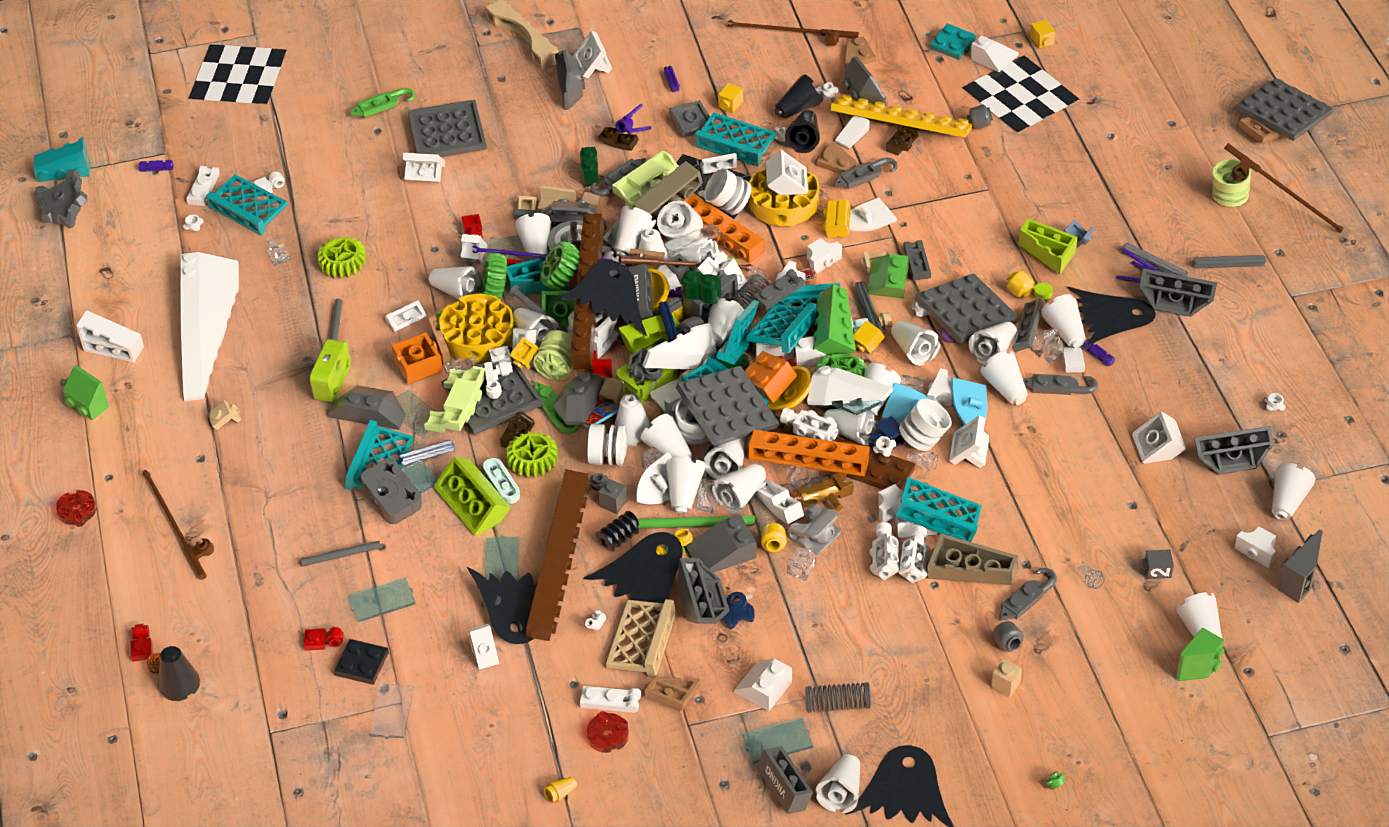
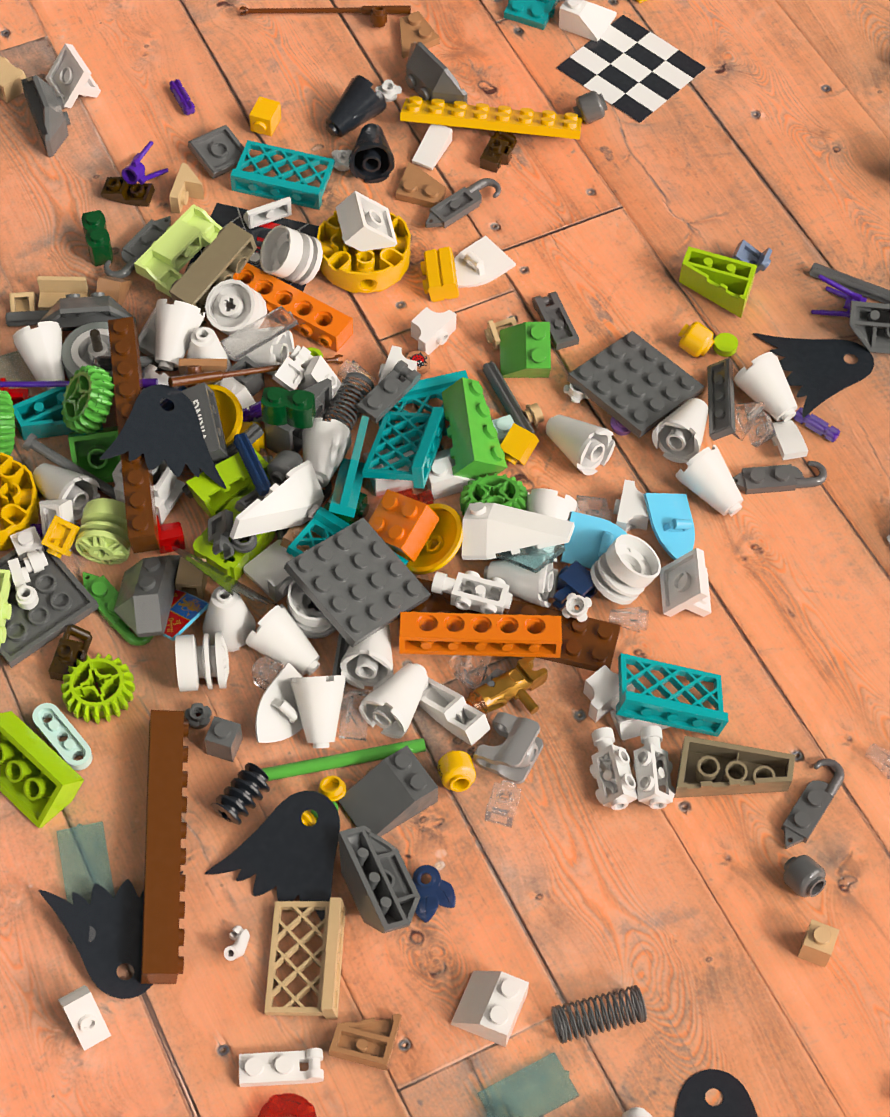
camera: 15 degrees left, 10 degrees up
(660, 139) = (185, 186): none -> tan slope

